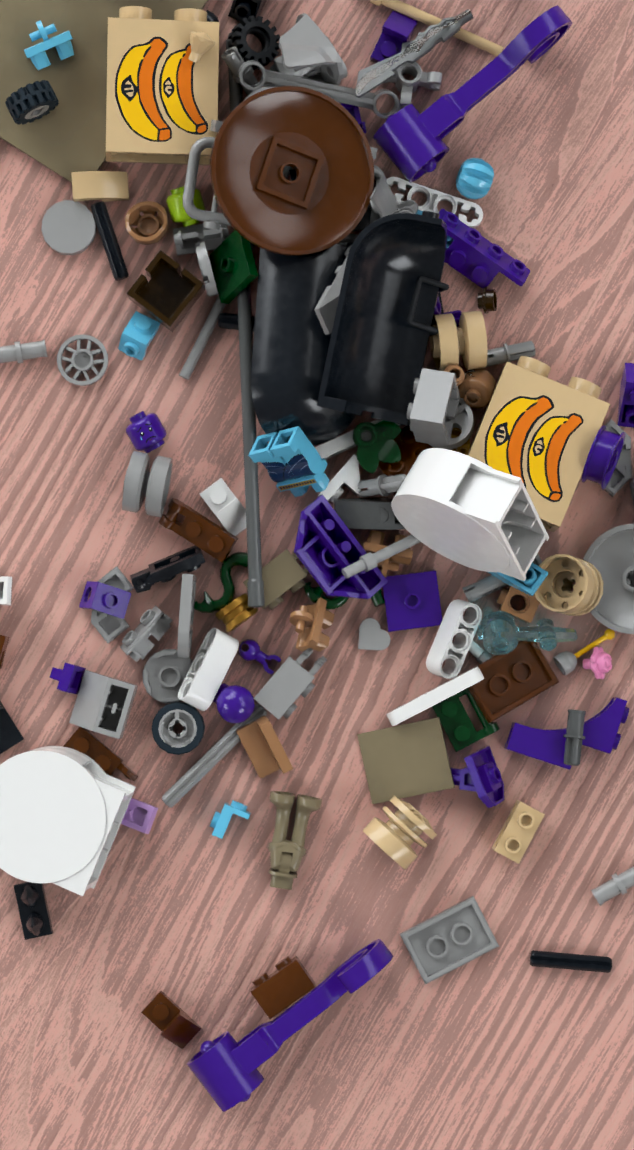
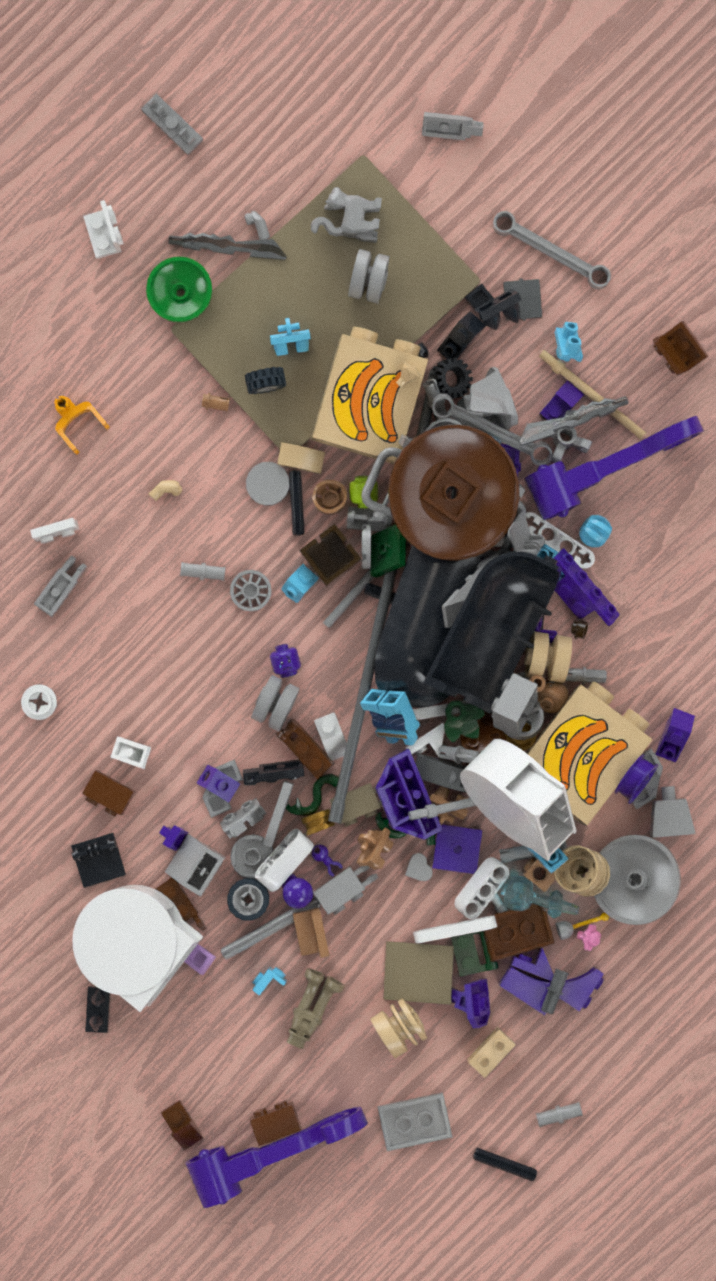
camera: 20 degrees right, 0 degrees up
(549, 715) = (540, 967): none -> dark purple slope

